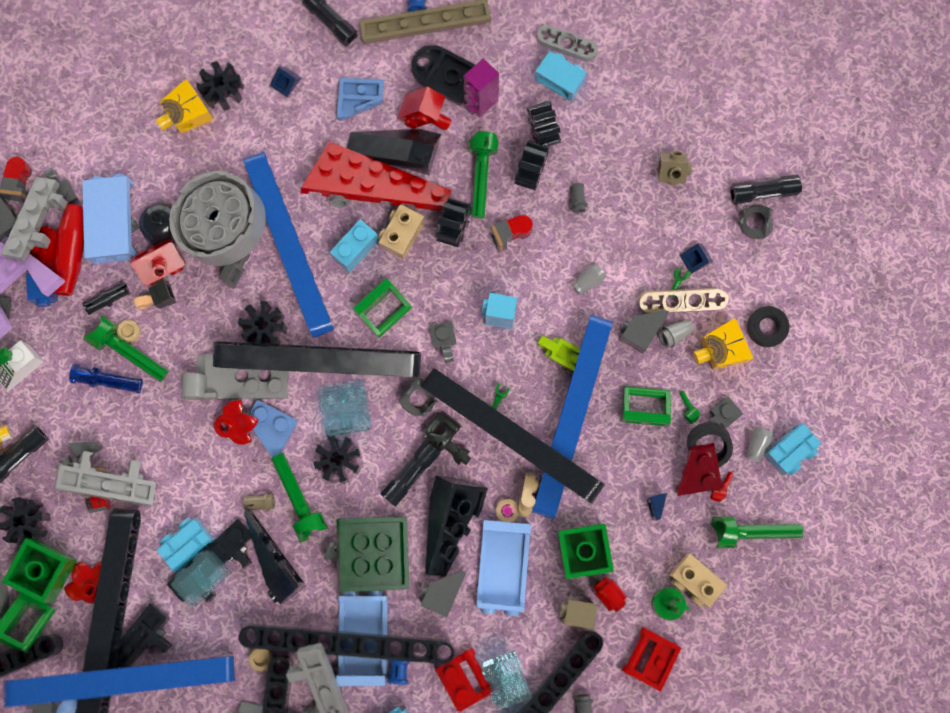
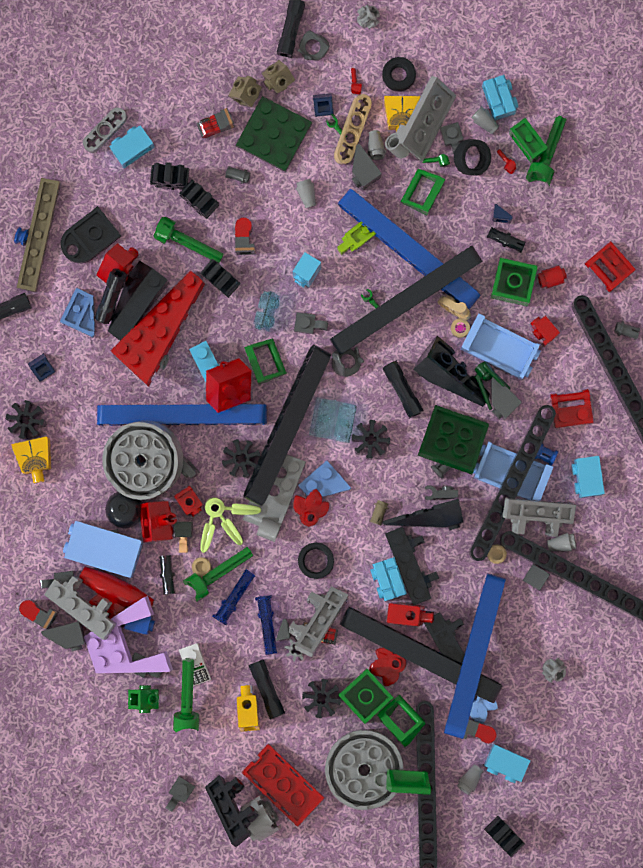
camera: 65 degrees left, 5 degrees up
(97, 421) = (266, 614): none -> clear blue pin
(147, 581) = (401, 614): none -> red torso
(161, 447) = (301, 560): none -> black tyre
(200, 578) = (420, 573): clear light blue brick -> none
(202, 321) = (228, 526): none -> yellowish green plant
(203, 288) = (188, 493): none -> red brick
(307, 520) = (409, 480): green piece -> none
(309, 571) = (446, 493): none -> dark grey plate
(335, 276) = (228, 385): none -> red brick
(397, 111) = (110, 297): none -> black axle
(401, 231) = (210, 322): tan brick -> none
(429, 291) = (269, 302): none -> clear light blue hinge
(443, 441) = (388, 354): pearl dark grey piece -> none
(466, 562) = (485, 372): none -> dark green plant
(481, 88) = (122, 212): magenta brick -> none
(506, 680) = (584, 377): clear light blue brick -> none
(544, 610) = (544, 330): none -> red brick
(578, 613) = (557, 304): dark tan piece -> none
(624, 152) = (215, 124): none -> leg
(631, 523) = (506, 239): none -> black pin
(640, 218) = (273, 134): none -> dark green plate
(669, 604) = (576, 236): green piece -> none
(697, 581) = (567, 209): tan brick -> none
(701, 471) = (489, 172): dark red wing -> none
(704, 195) = (277, 77): none -> dark tan brick
(707, 373) = (419, 134): none -> light grey hinge
(731, 285) = (355, 87): none -> red hand
(757, 501) = (528, 140): none -> green tile
(817, 266) = (368, 16): none -> light grey gear

